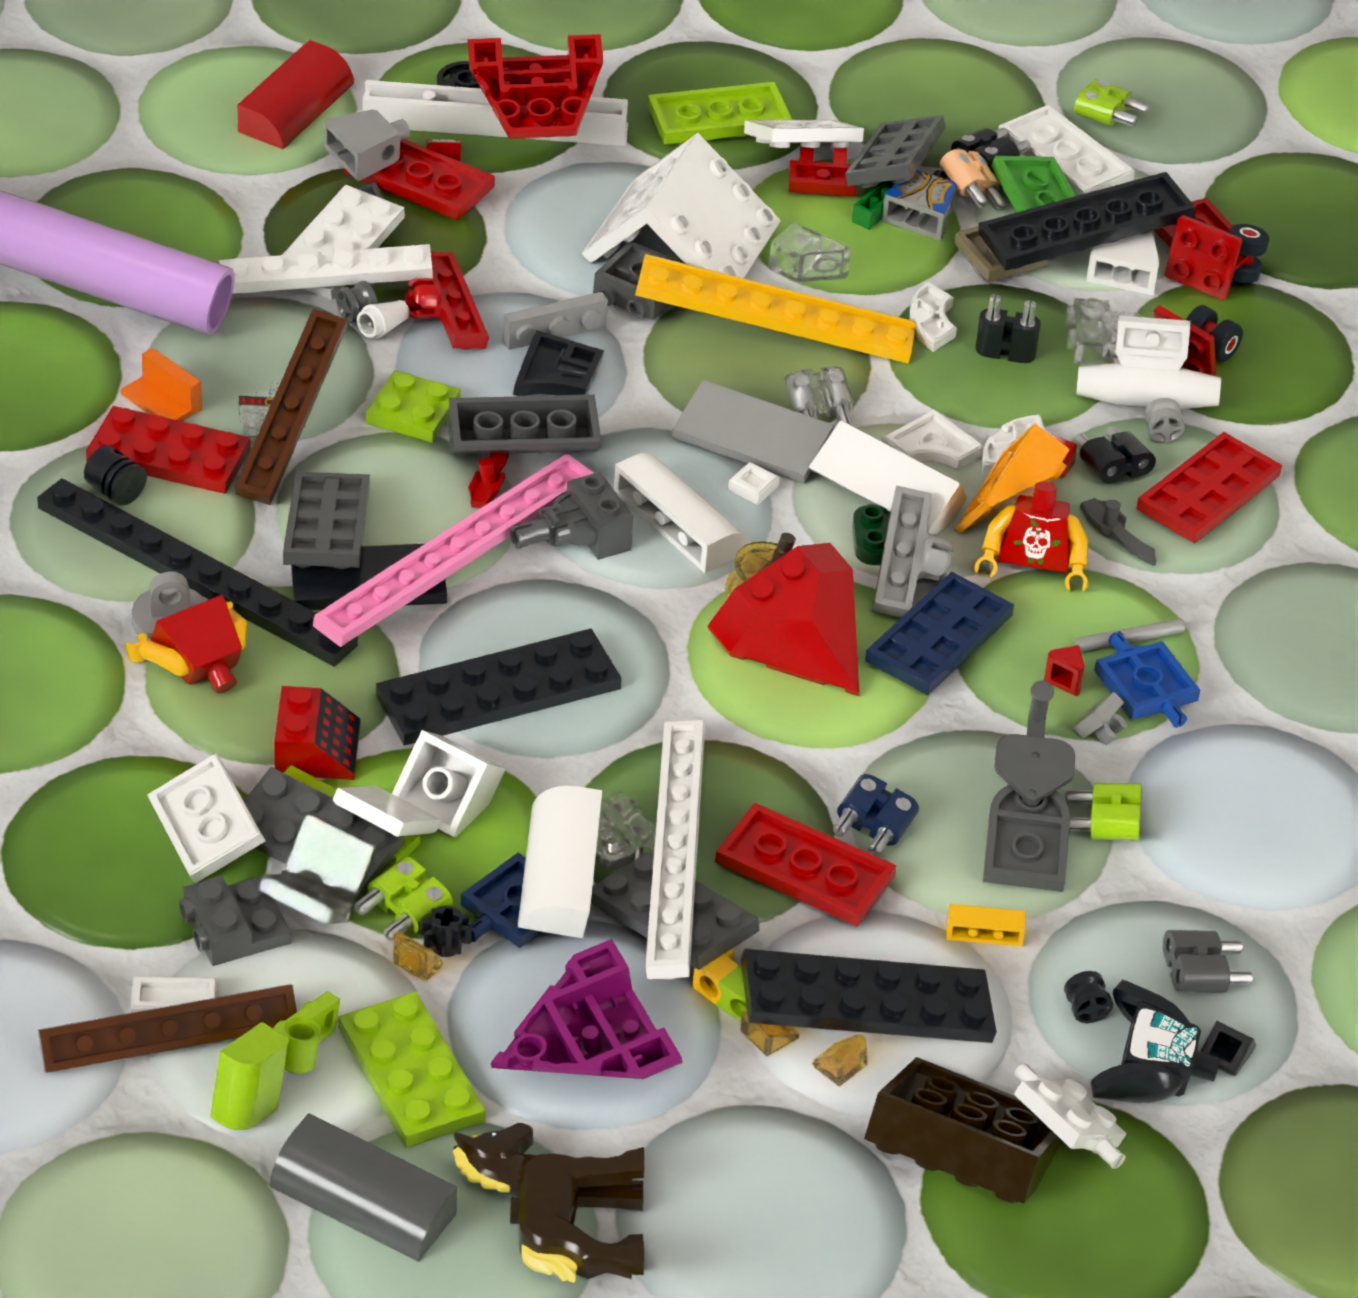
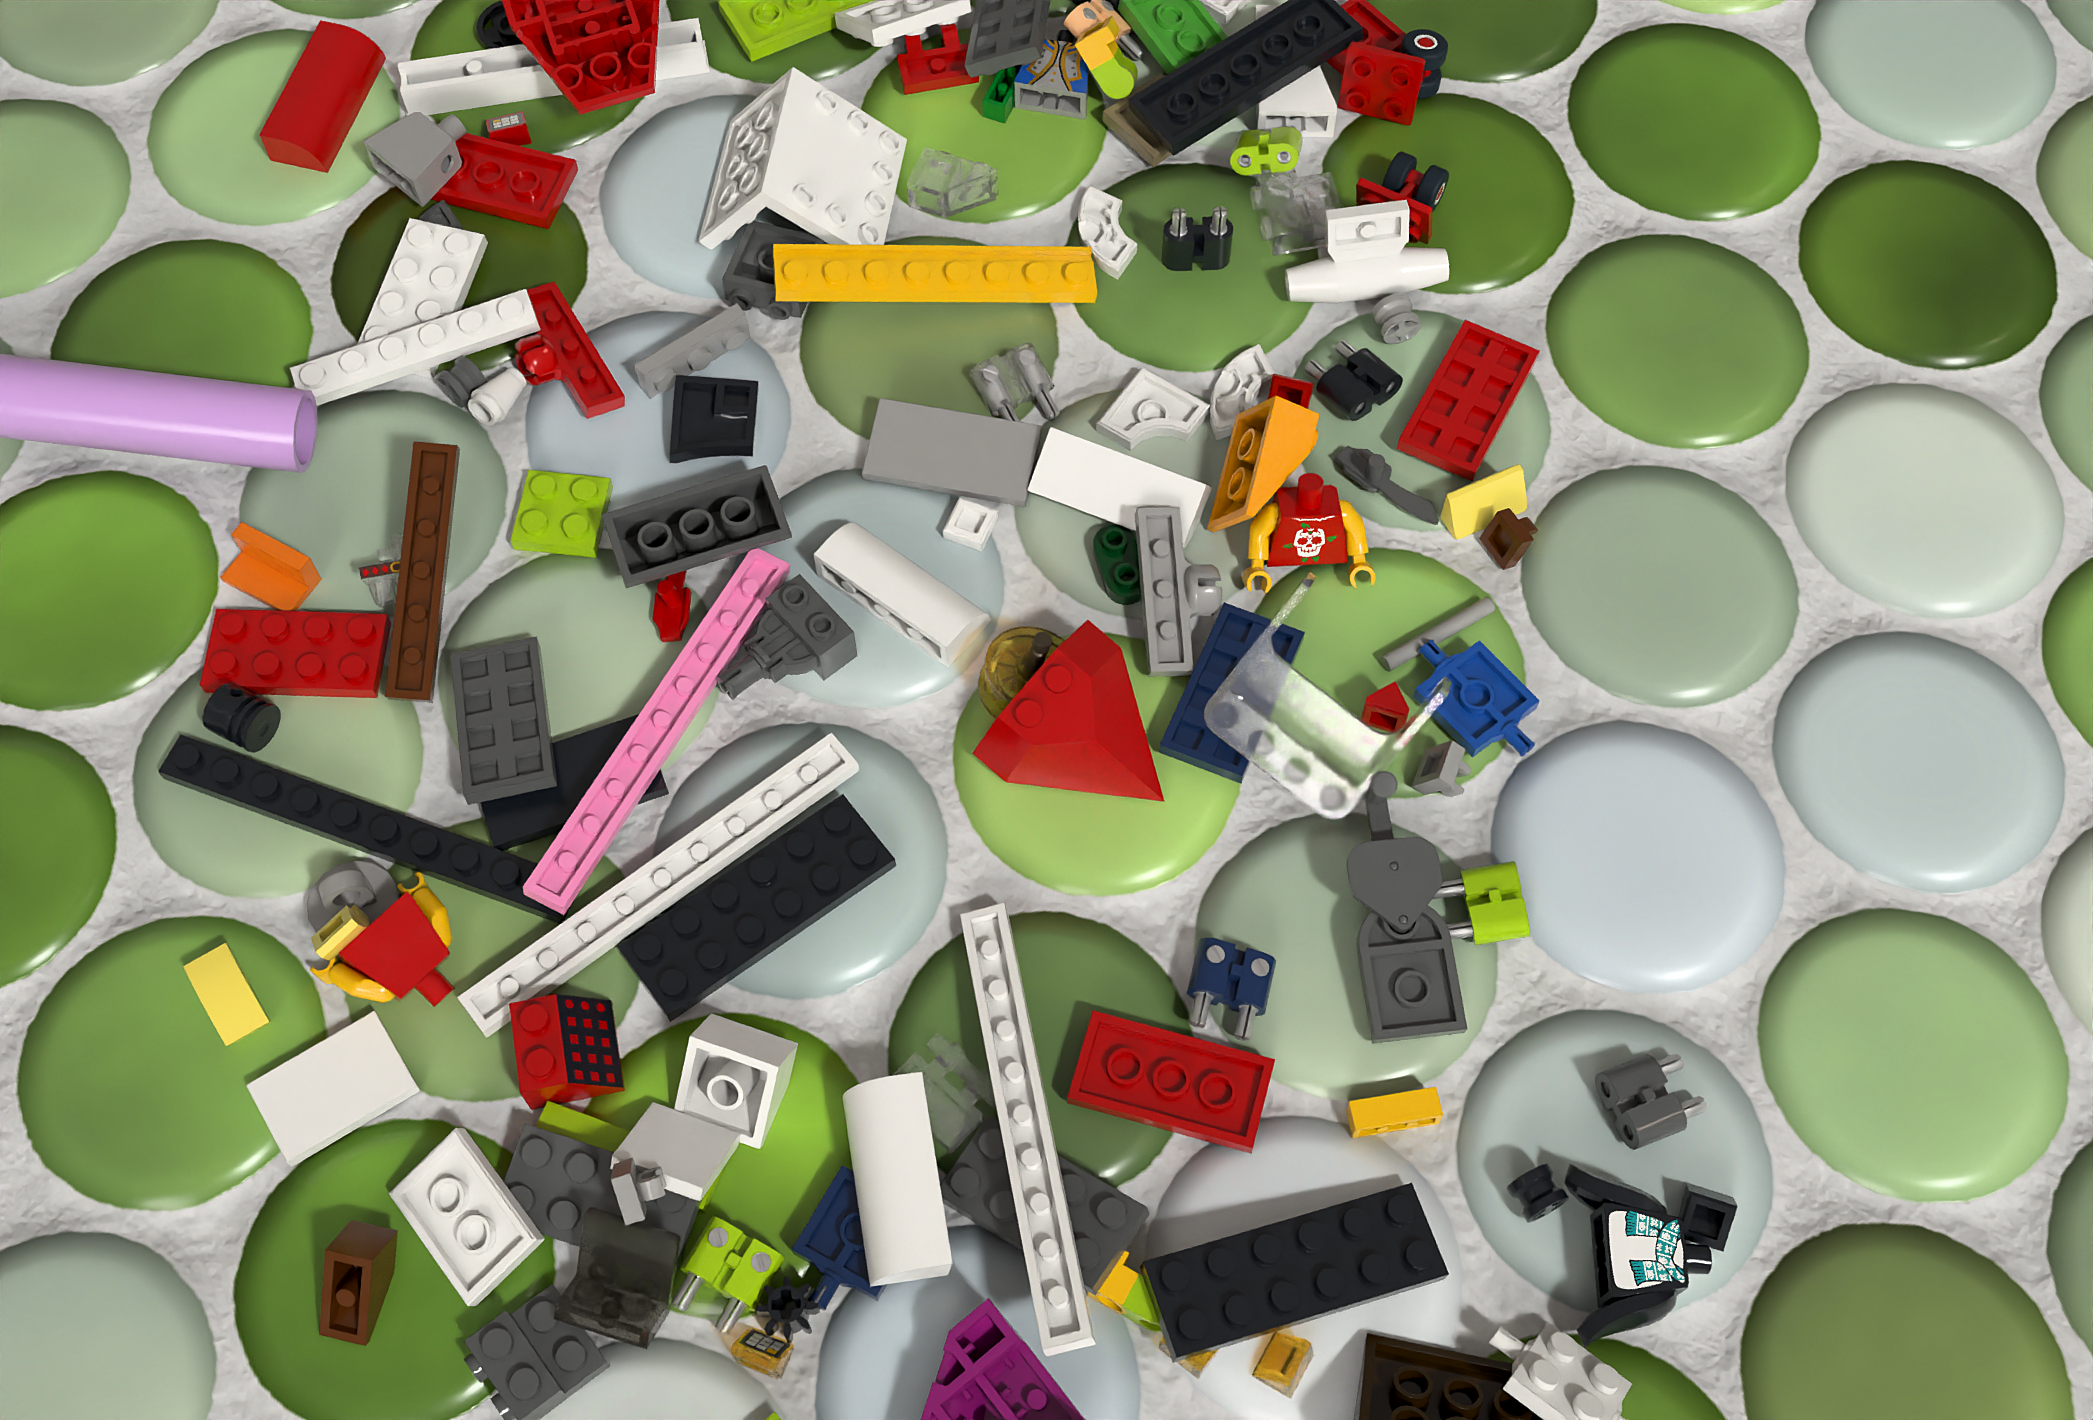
camera: 10 degrees left, 20 degrees up
(53, 647) = (226, 994): none -> light yellow slope
(107, 838) = (356, 1281): none -> reddish brown slope
(120, 723) = (332, 1088): none -> white tile
(161, 607) = (339, 932): none -> light yellow slope
(350, 807) = (636, 1189): none -> light grey tile
(431, 649) = (659, 883): none -> white plate
(968, 193) = (1106, 61): none -> leg
(981, 654) = (1300, 730): none -> clear windscreen
(1088, 283) = (1266, 151): none -> lime piece
(1199, 555) = (1476, 504): none -> light yellow slope
(1211, 581) = (1508, 537): none -> reddish brown tile

